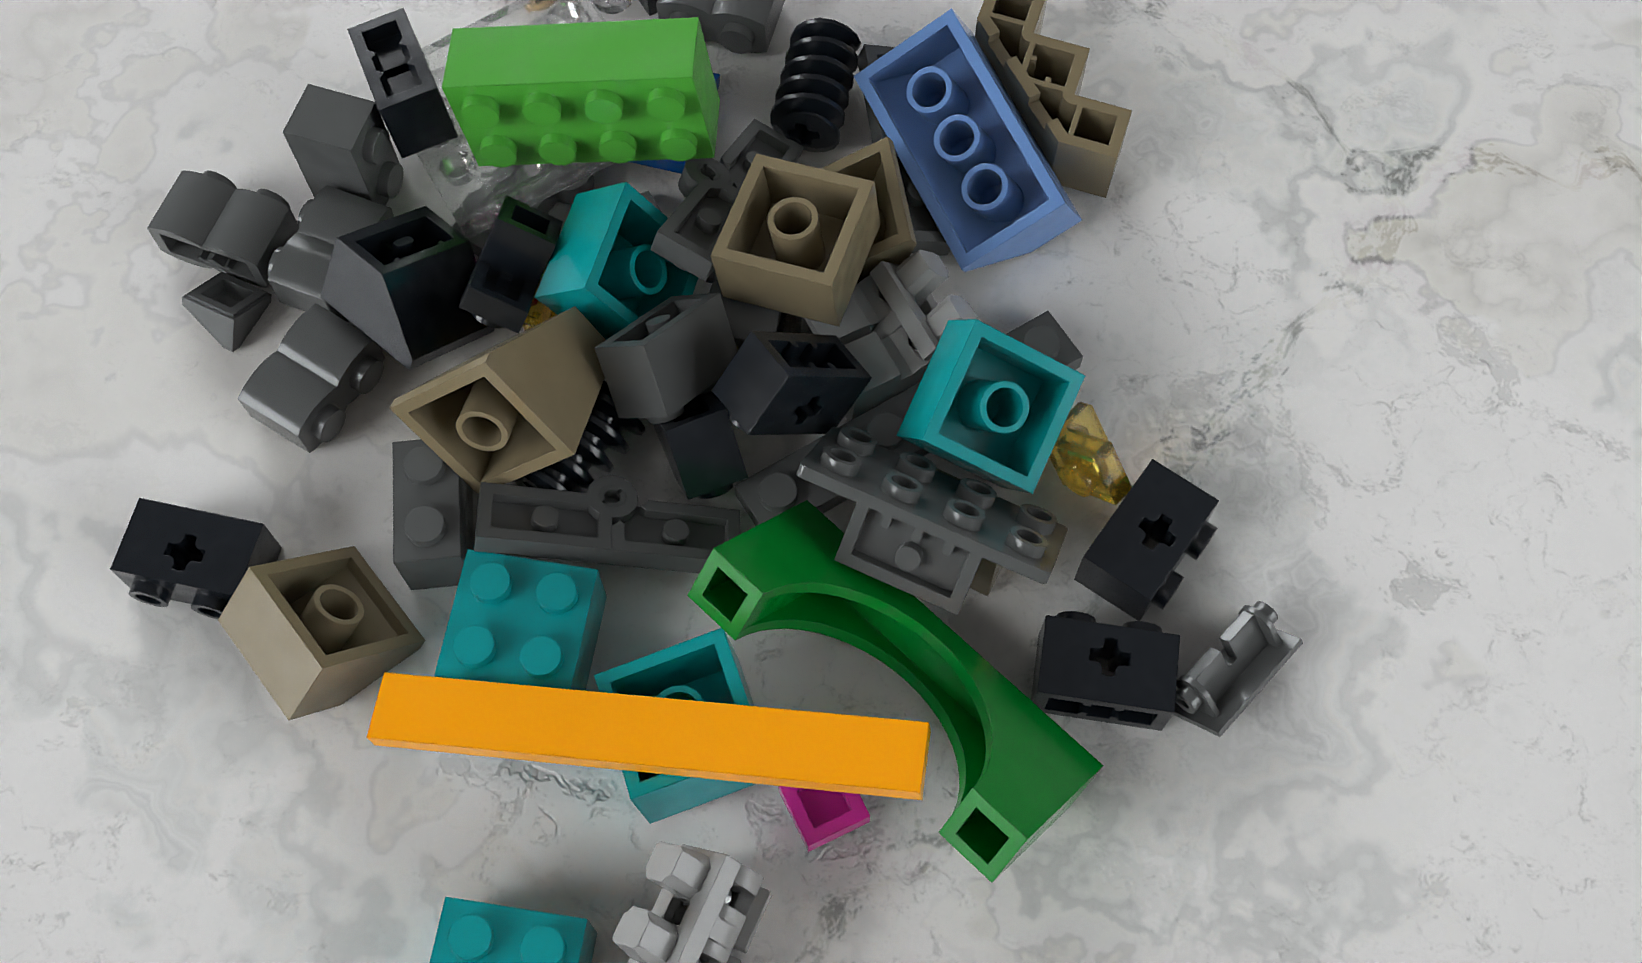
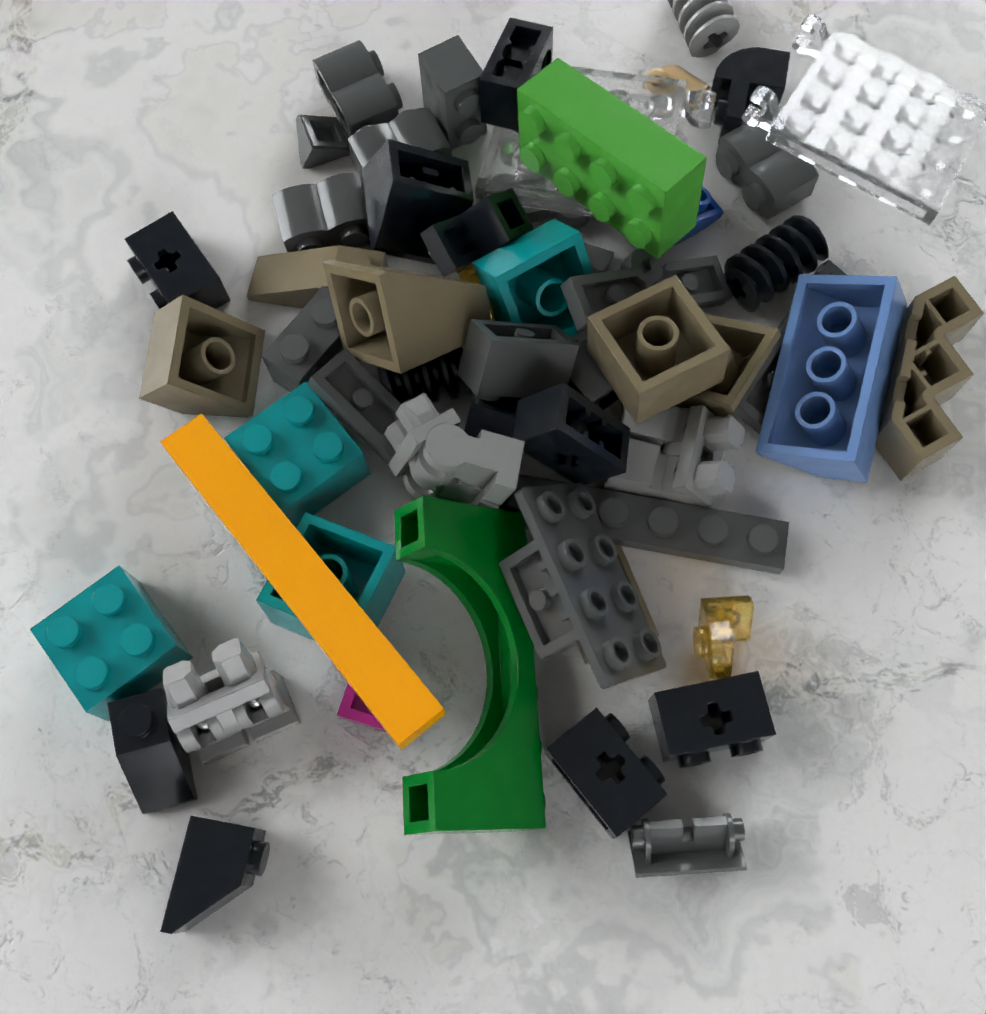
camera: 45 degrees right, 5 degrees up
(351, 454) = (297, 276): none -> dark tan slope
(696, 499) = (447, 462): none -> light grey hips
(991, 405) = (683, 551): teal brick -> none

